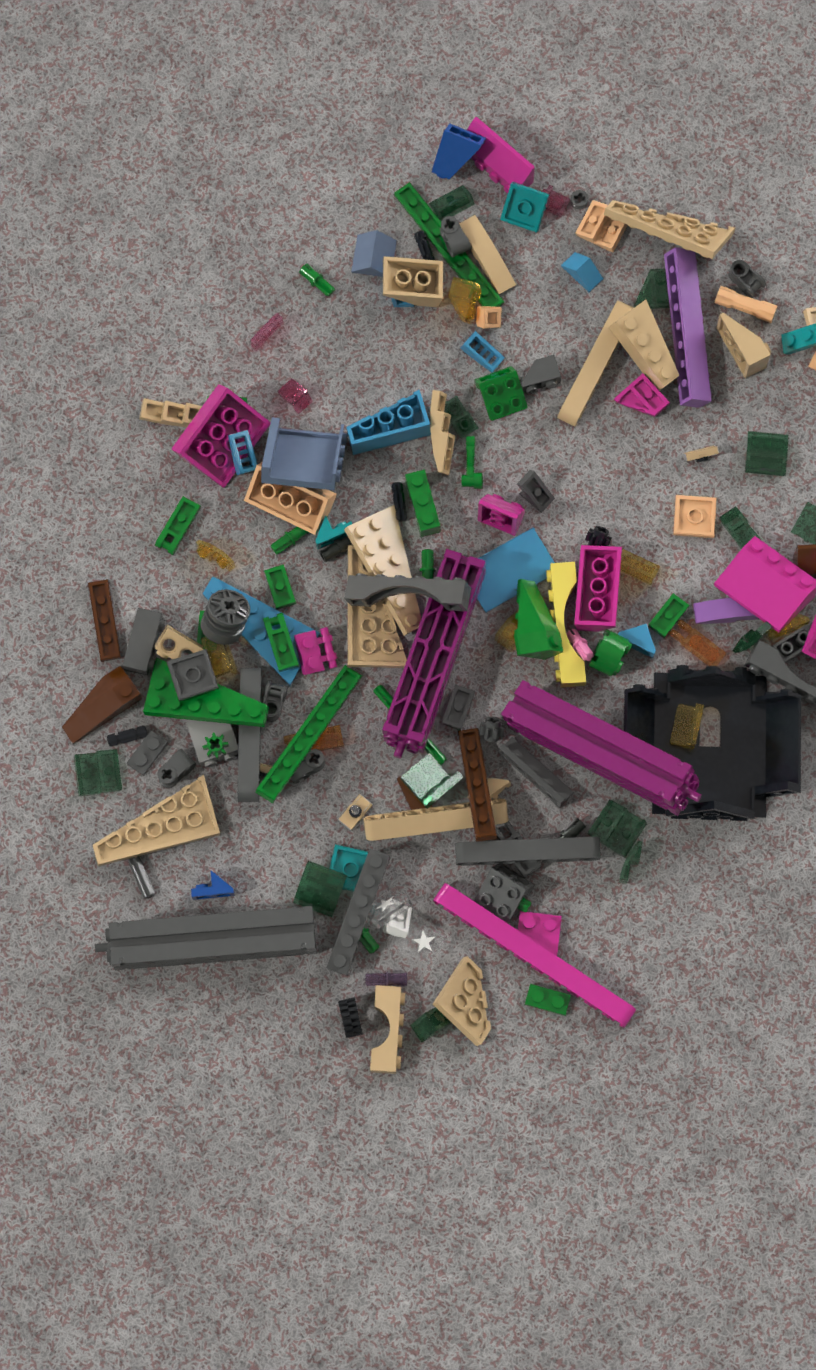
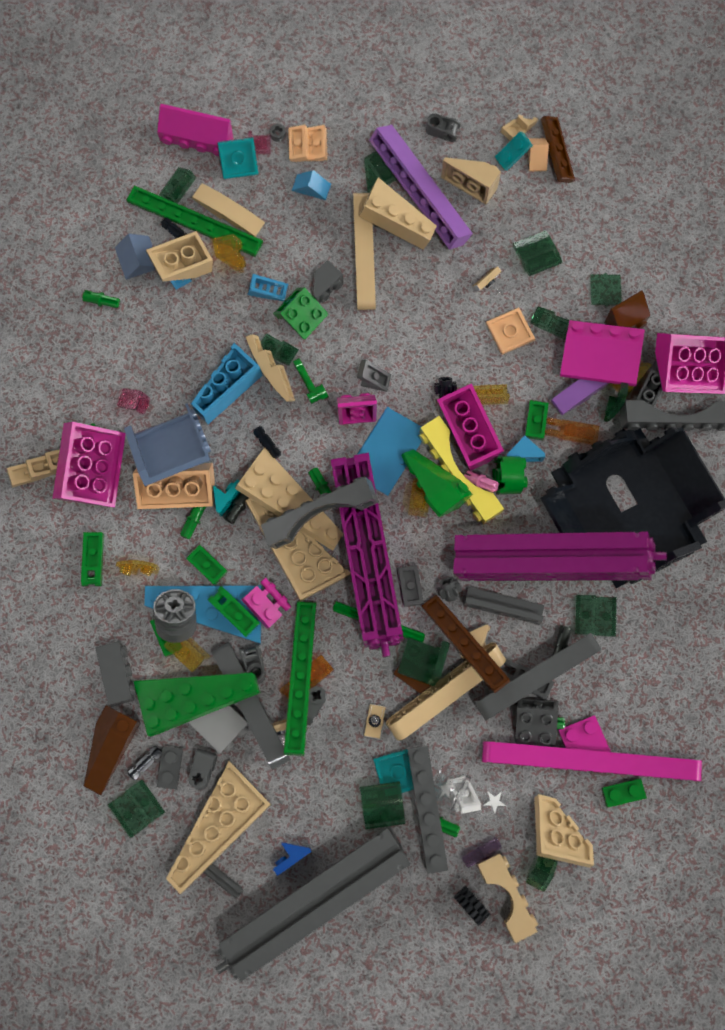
camera: 30 degrees left, 0 degrees up
(104, 620) = (72, 673): reddish brown tile -> none
(181, 641) = (149, 657): tan brick -> none
(192, 675) = (174, 681): dark grey plate -> none
(215, 740) = (230, 736): green gear -> none
(249, 450) = (119, 465): dark azure slope -> none
(266, 331) = (81, 361): clear pink tile -> none
(423, 503) = (292, 437): green arch -> none
(455, 150) = (158, 140): blue slope -> none
(455, 239) = (194, 208): dark grey piece -> none
(488, 317) = (257, 258): light nougat slope -> none
(632, 858) = (623, 633): clear green slope -> none
(643, 397) = (416, 258): dark pink wing -> none
(673, 228) = (363, 116): tan wing -> none
(686, 725) = (604, 500): clear yellow panel -> none
(731, 299) = (443, 148): light nougat axle -> none

